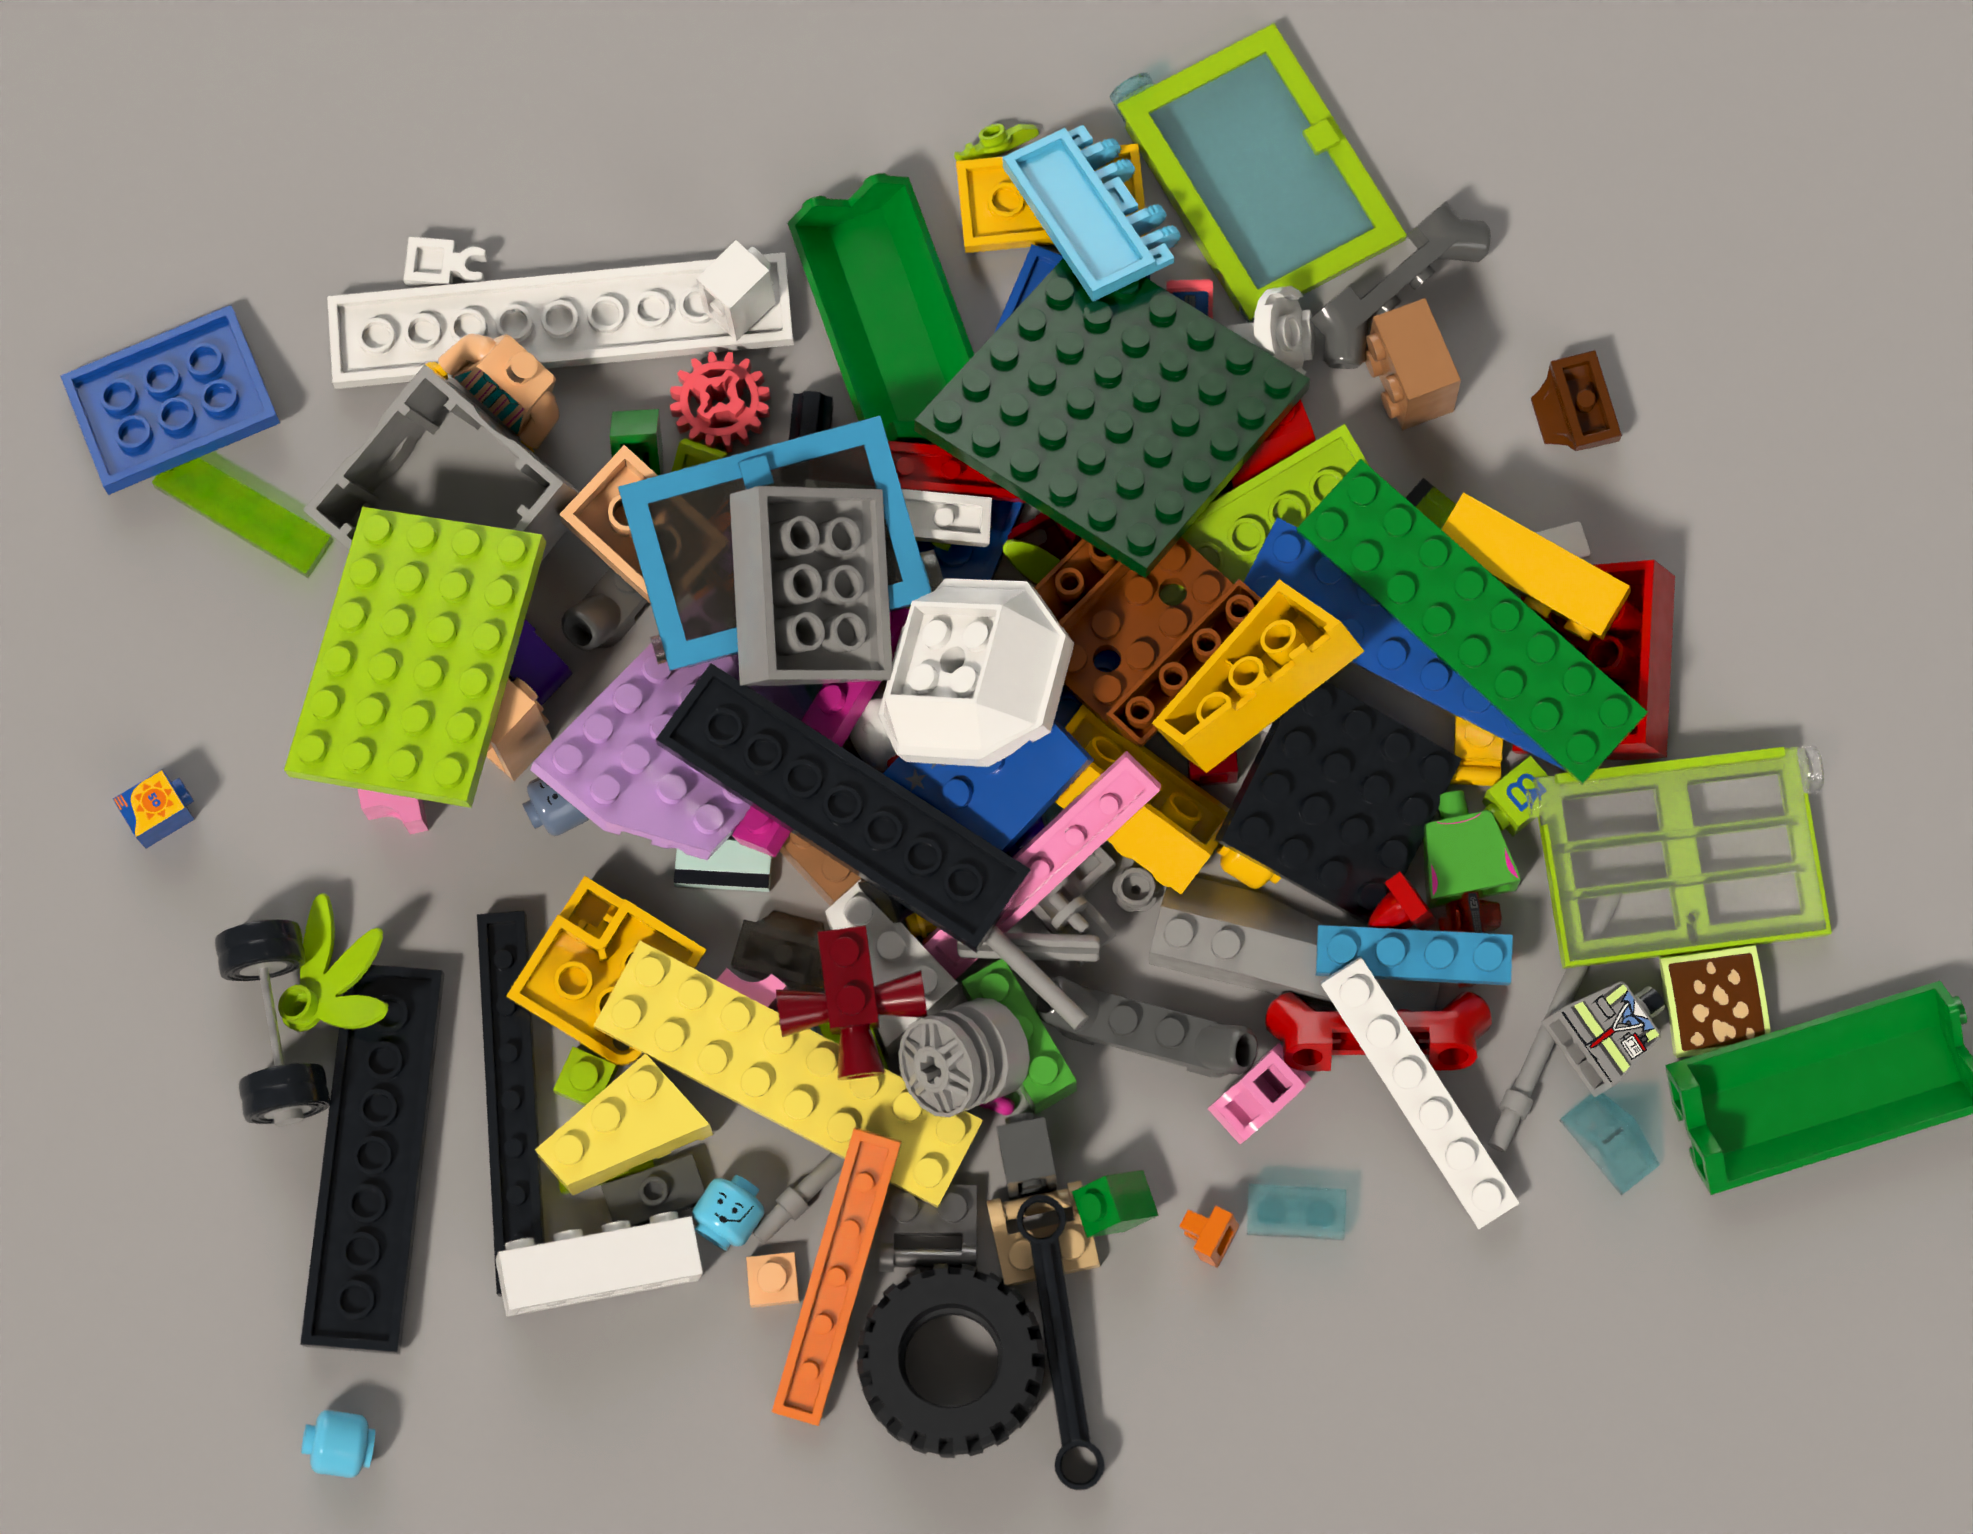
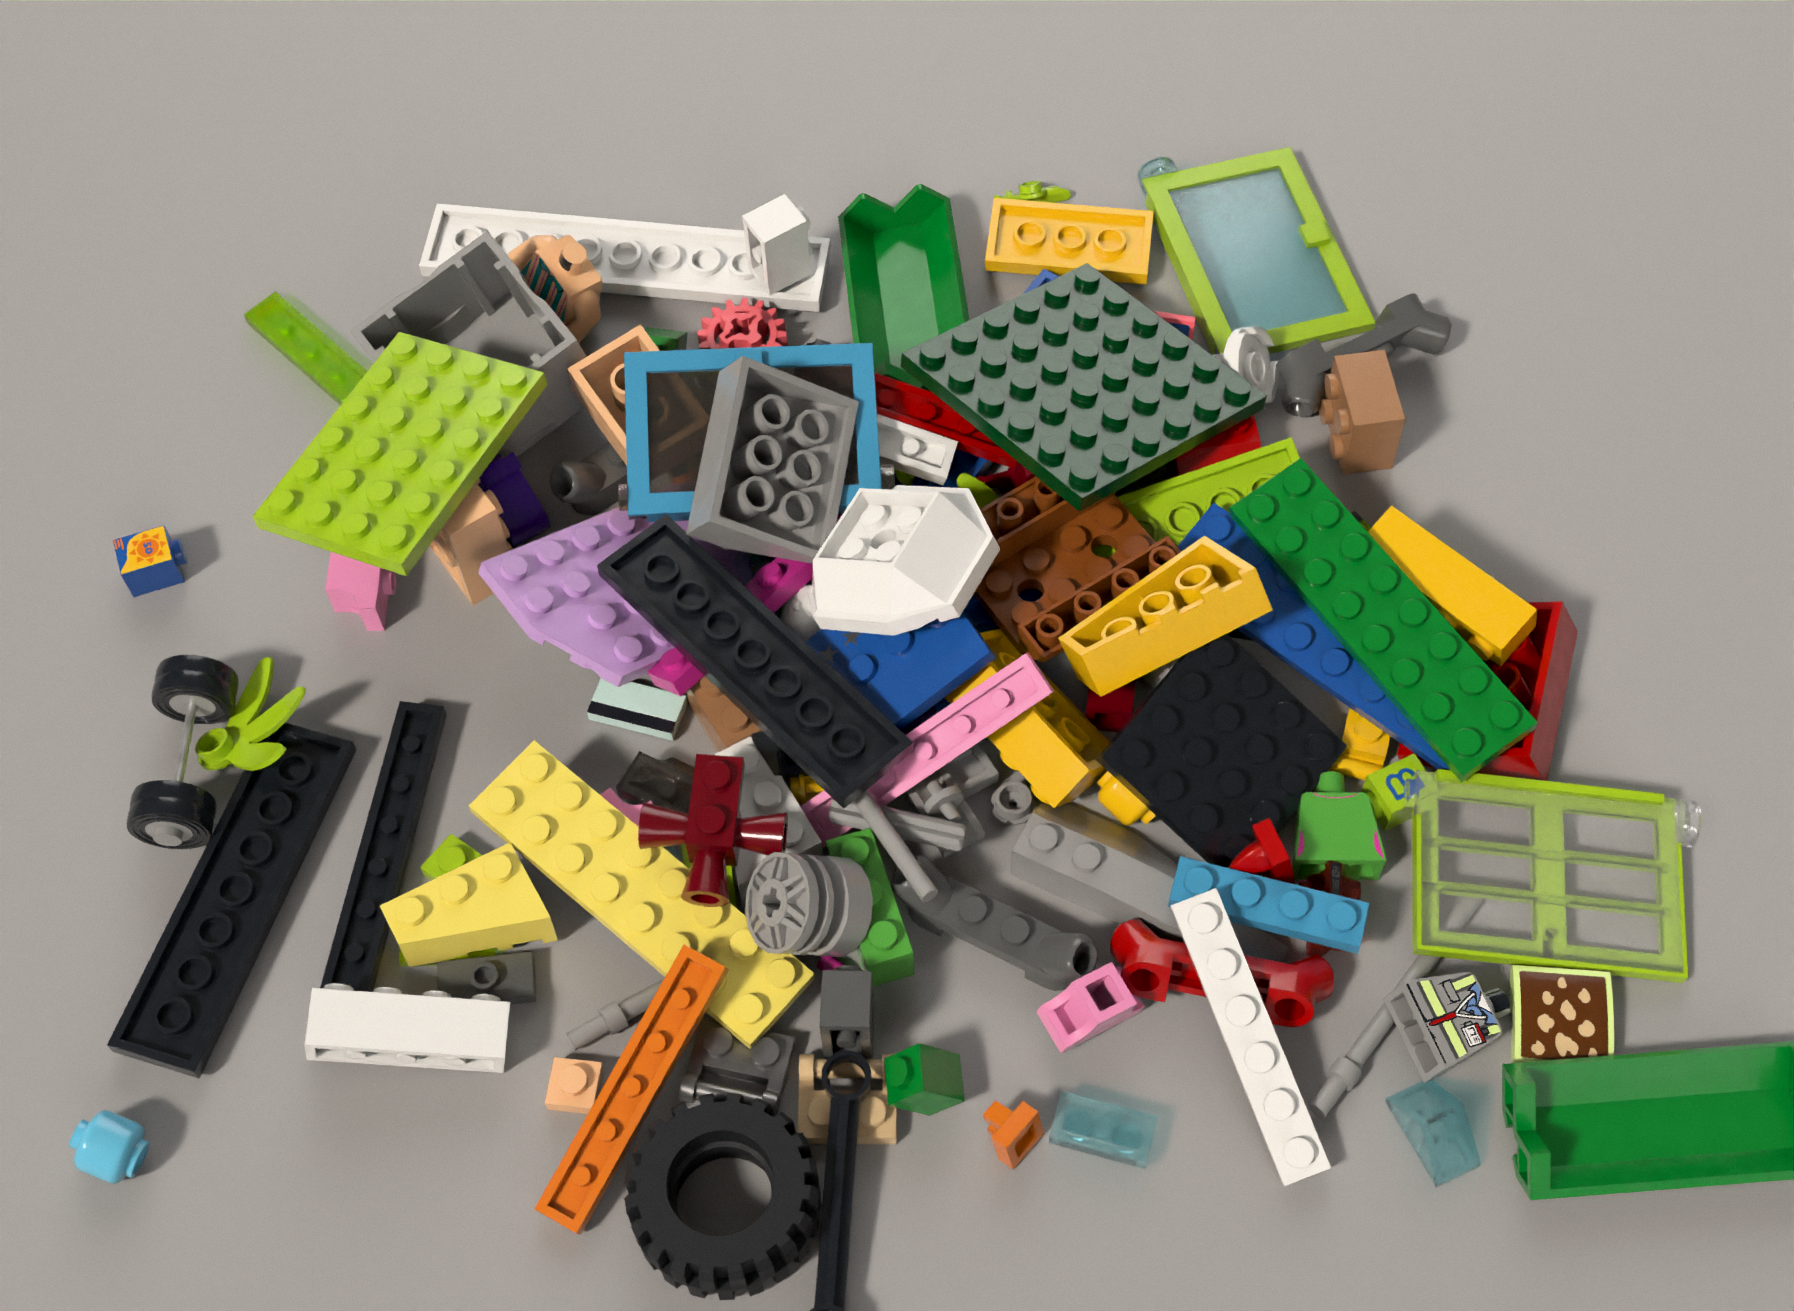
camera: 10 degrees right, 15 degrees down
(169, 399) = (281, 257): blue plate -> none
(436, 262) = (540, 196): white plate -> none
(551, 809) = (496, 626): sand blue head -> none
(583, 960) = (476, 750): yellow slope -> none
(728, 1212) = (548, 1009): medium azure head -> none
(1088, 209) = (1101, 240): medium azure hinge -> none
(1575, 404) = (1506, 476): reddish brown slope -> none

